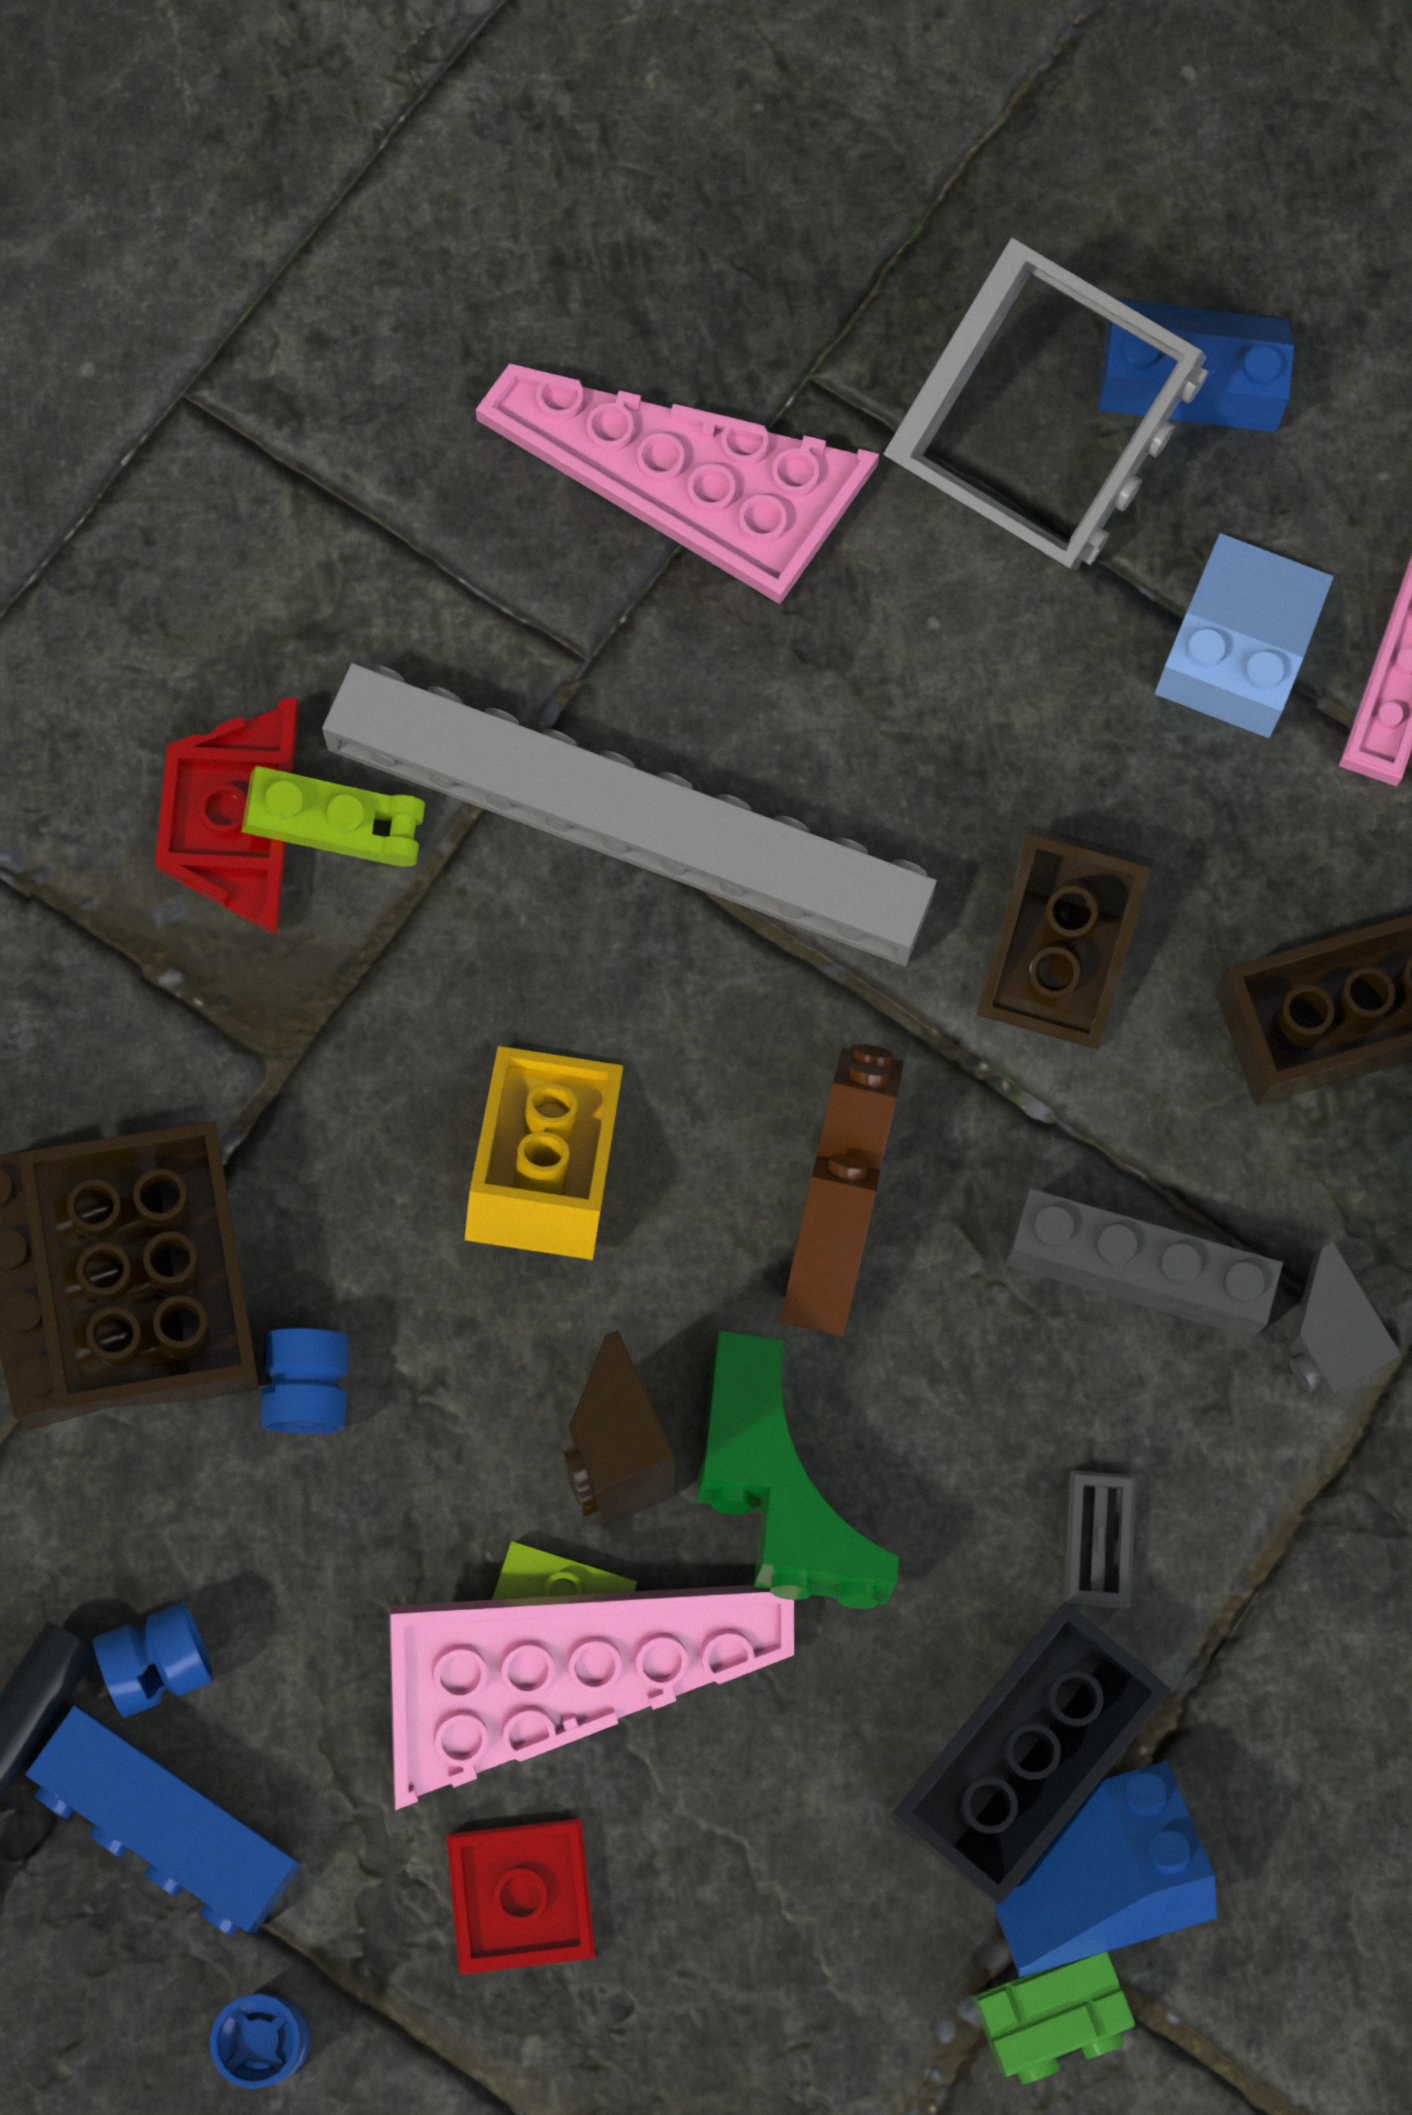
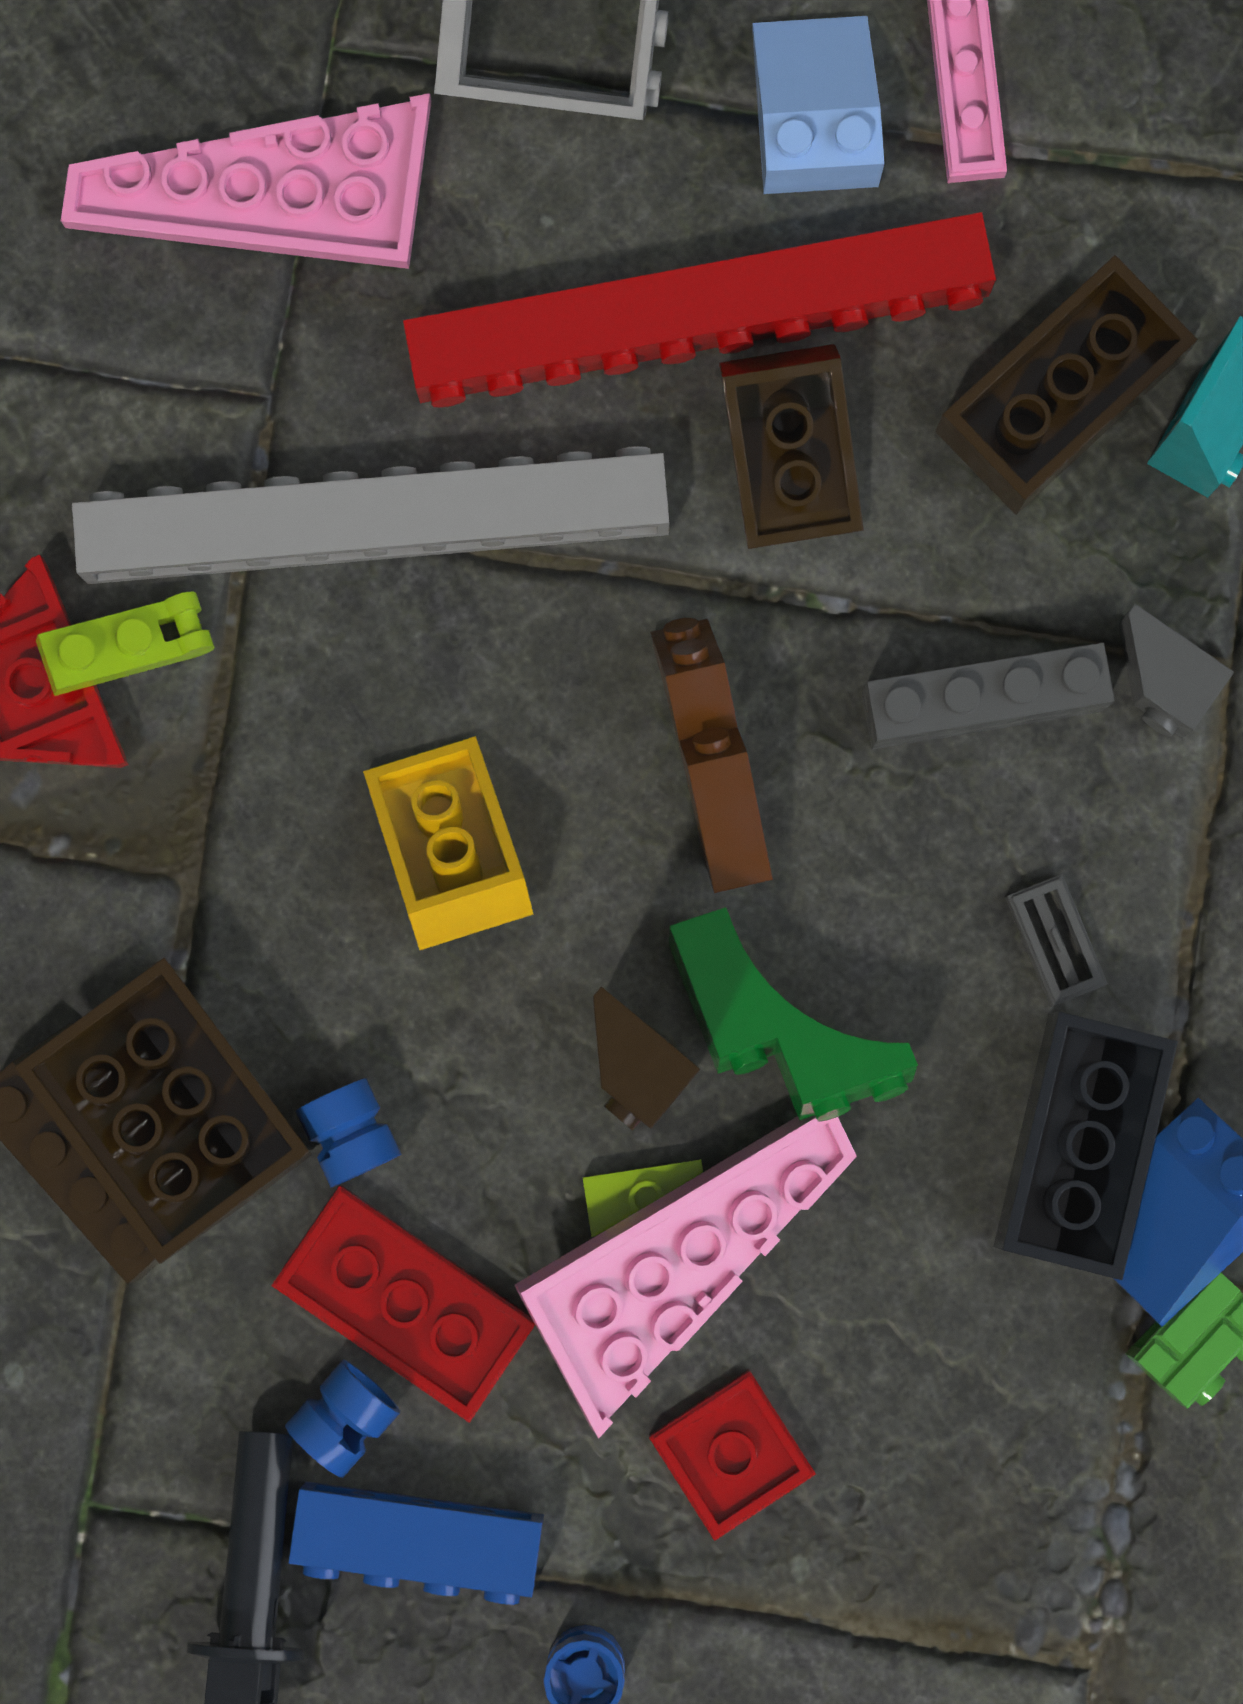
camera: 20 degrees left, 10 degrees up
(274, 1581) = (404, 1303): none -> red tile
(1041, 768) = (700, 309): none -> red brick

